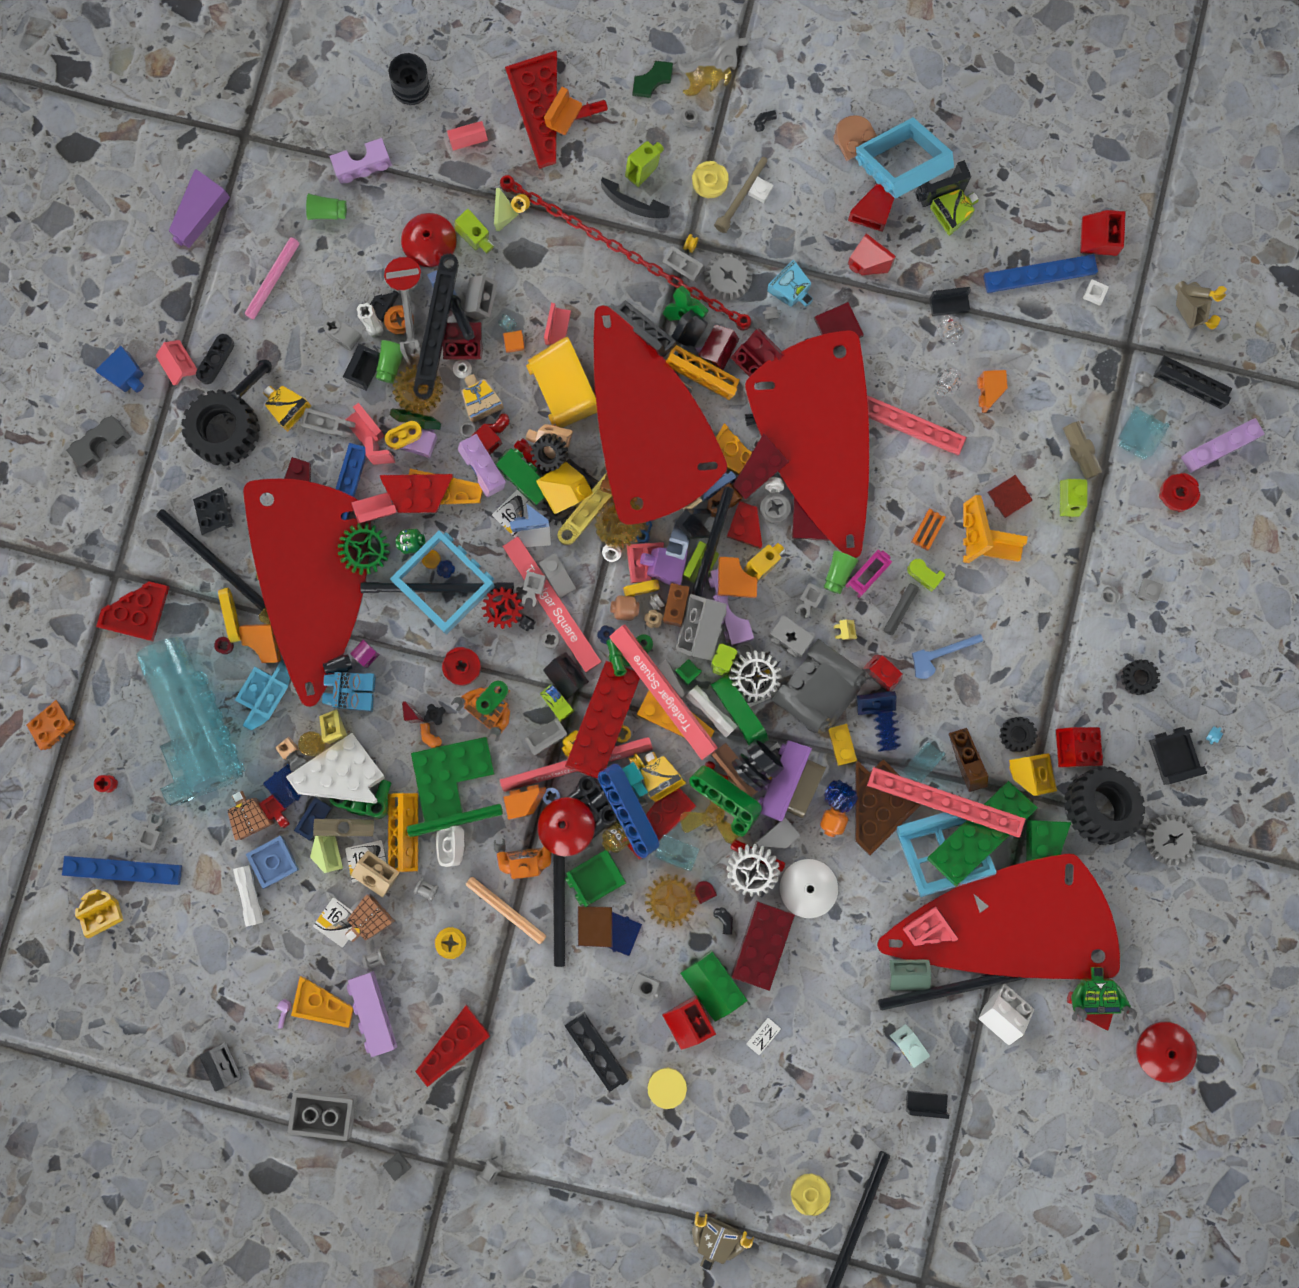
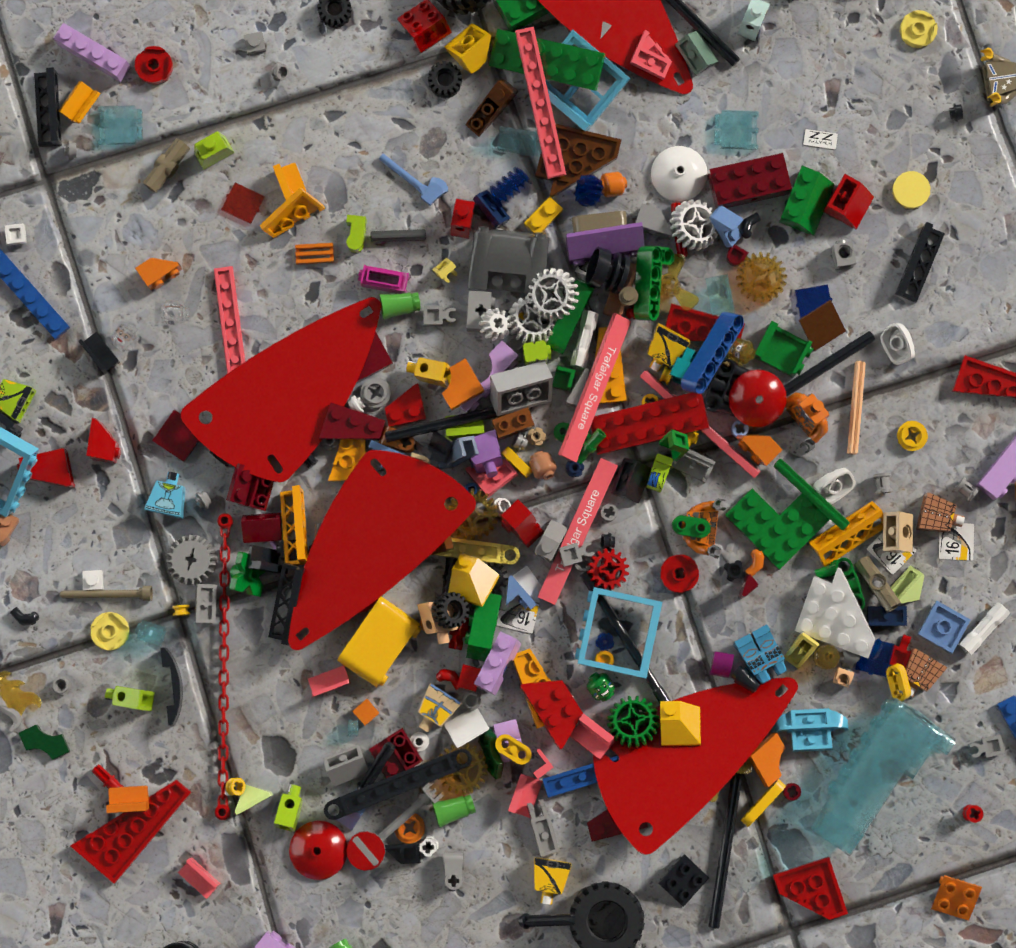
camera: 125 degrees left, 0 degrees up
(250, 790) = (898, 682): none -> yellow beam
(336, 585) = (679, 724): none -> yellow slope
(362, 367) = (472, 831): black panel -> none
(448, 412) = (466, 727): none -> white sticker
(537, 983) = (897, 343): none -> white piece
(569, 729) = (676, 442): none -> green panel
(585, 557) = (521, 523): none -> red wedge
(687, 209) = (150, 632): none -> clear light blue brick
(712, 1177) = (956, 112): none -> black plate
(724, 769) = (628, 296): none -> dark tan plate
(735, 898) = (726, 225): none -> medium blue slope
(768, 645) = (489, 324): none -> white gear
(770, 695) = (543, 305): none -> white gear
(817, 965) = (736, 129): none -> clear light blue plate
(1183, 409) = (79, 102): none -> light orange panel

